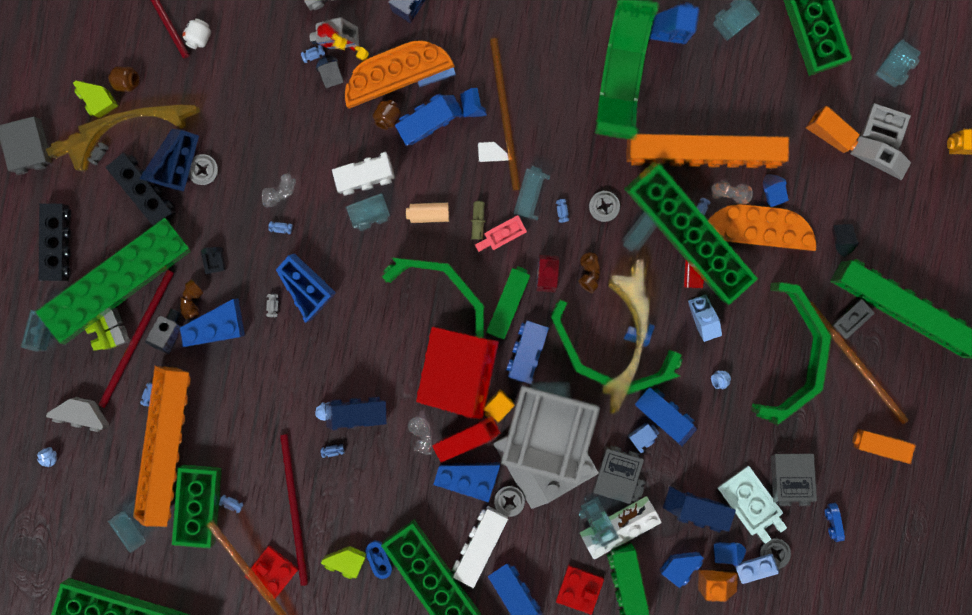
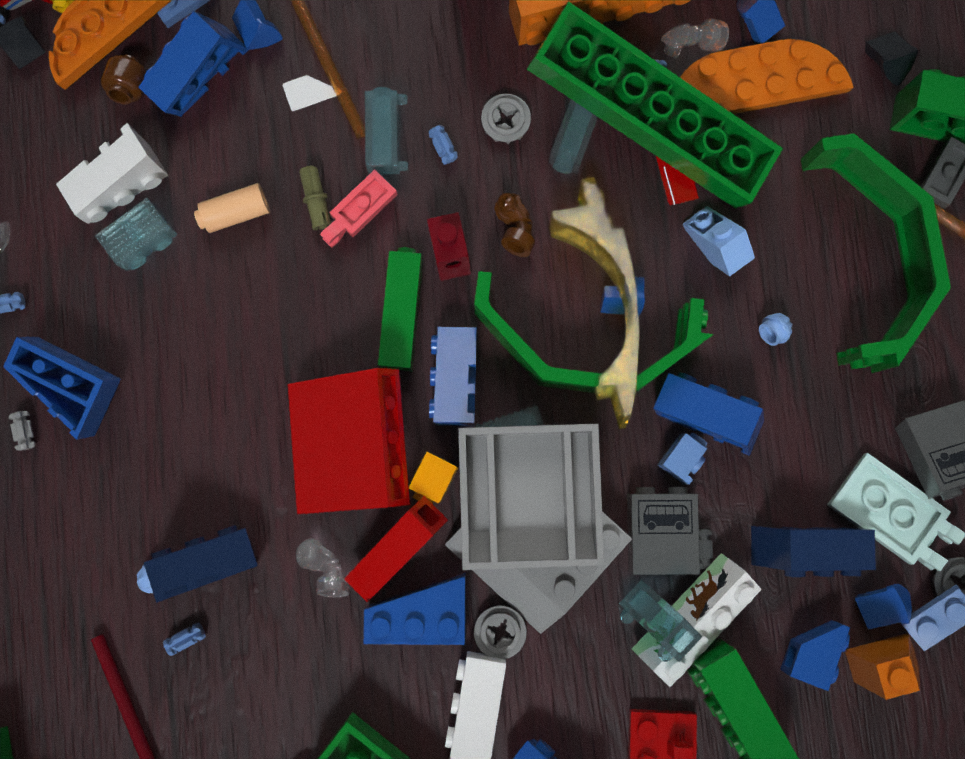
camera: 15 degrees left, 5 degrees down
(394, 271) = (213, 297): green panel -> none

